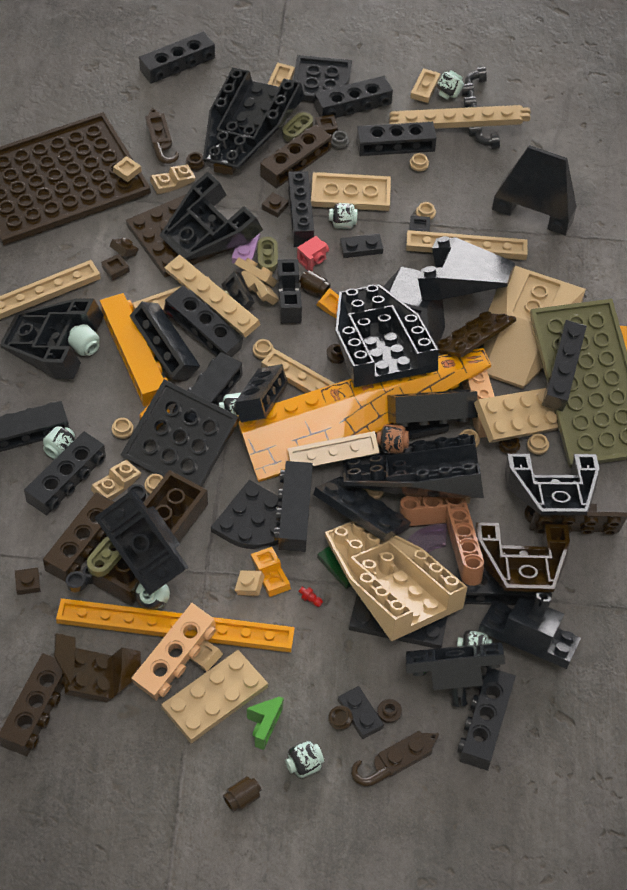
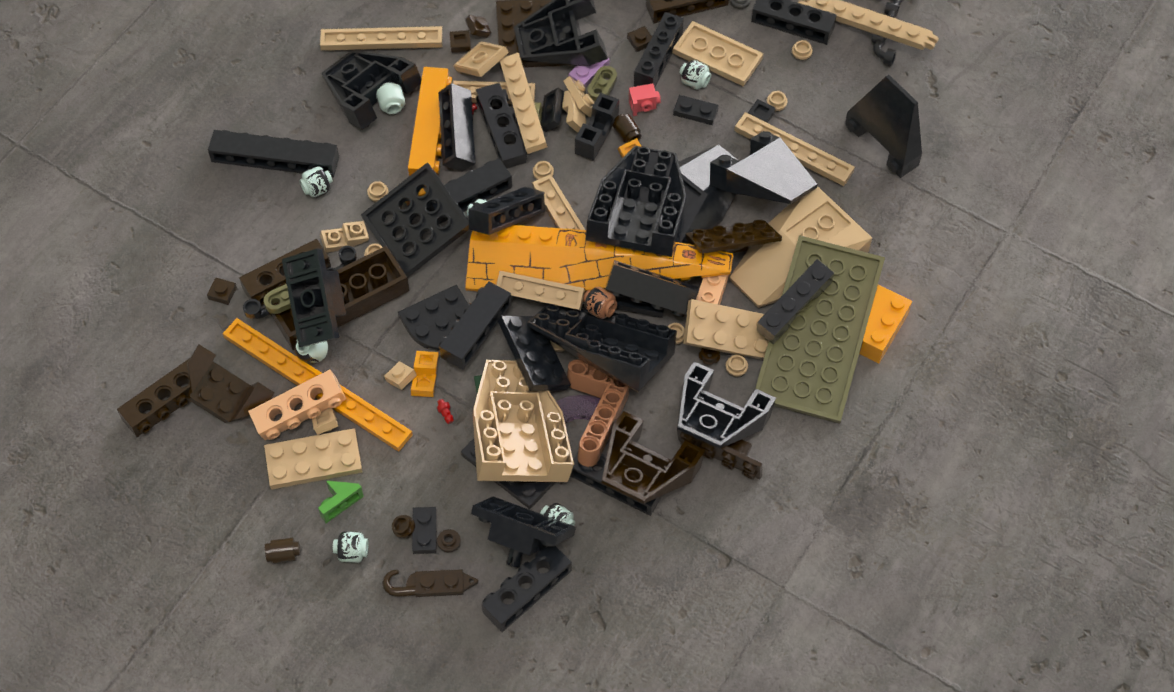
camera: 30 degrees right, 5 degrees up
(69, 461) = (312, 202): black brick -> none
(146, 274) = (481, 59): none -> tan tile
(531, 628) = (614, 530): black brick -> none

